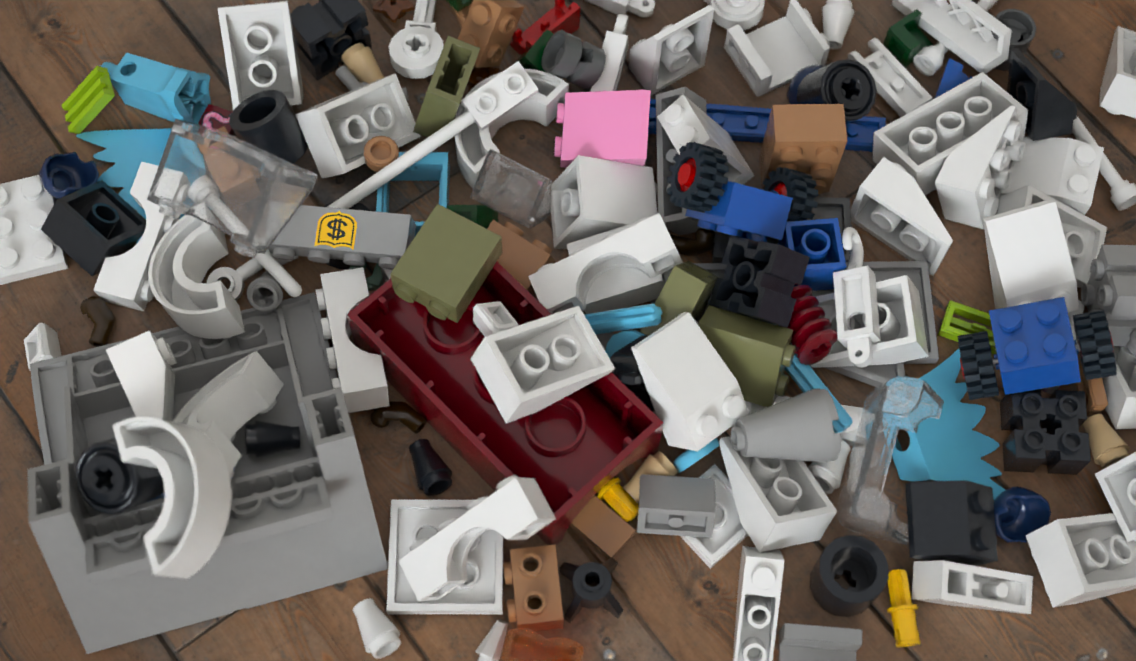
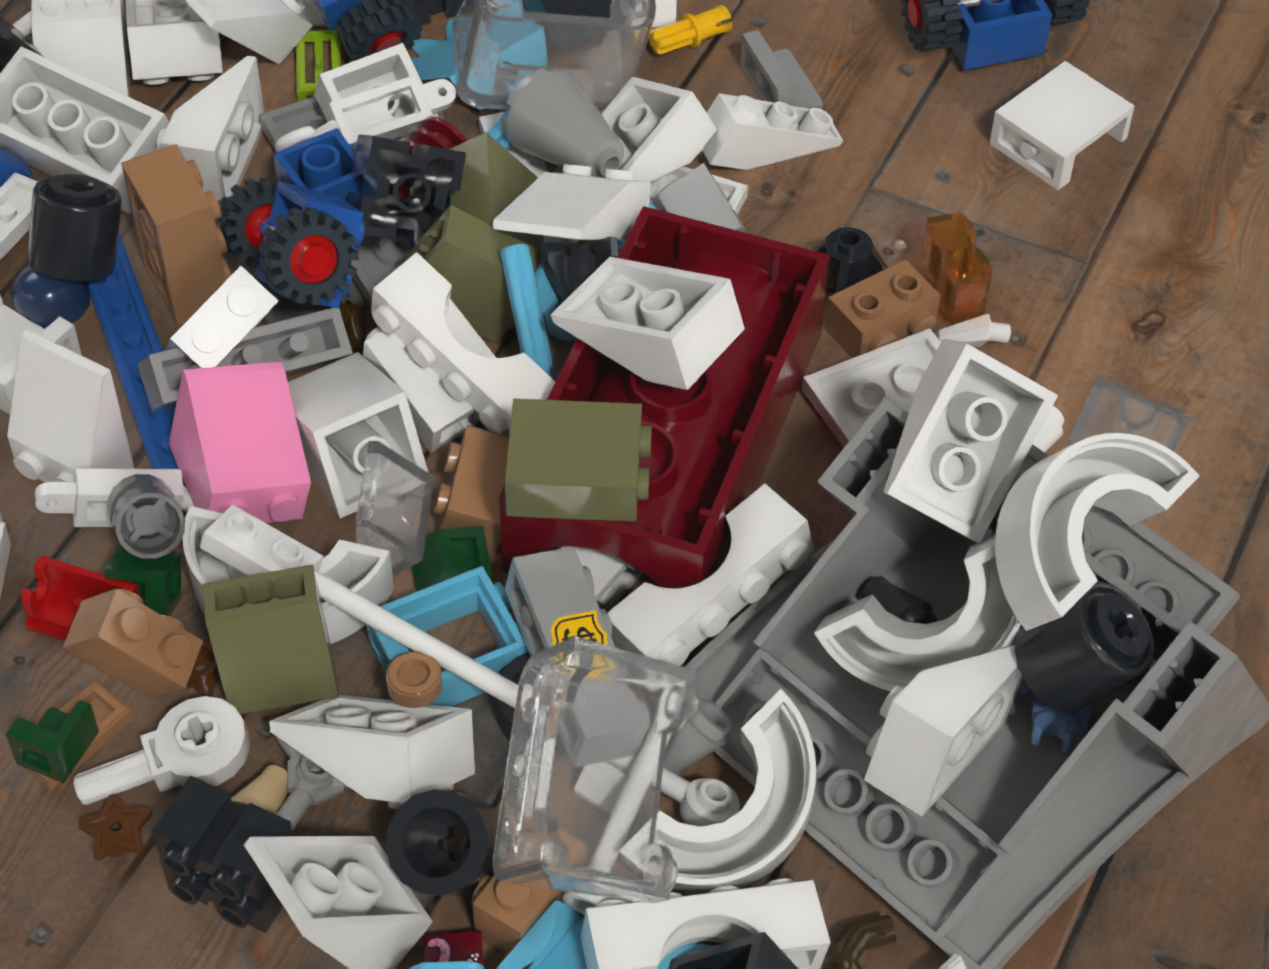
camera: 115 degrees left, 15 degrees down
(290, 465) = (966, 438): none -> white slope
(430, 469) = (806, 468): black cone -> none
(439, 562) = (847, 288): white arch -> none
(492, 318) = (623, 385): white slope -> none
(863, 565) = (694, 52): black piece -> none
(980, 170) = (141, 71): white slope -> none

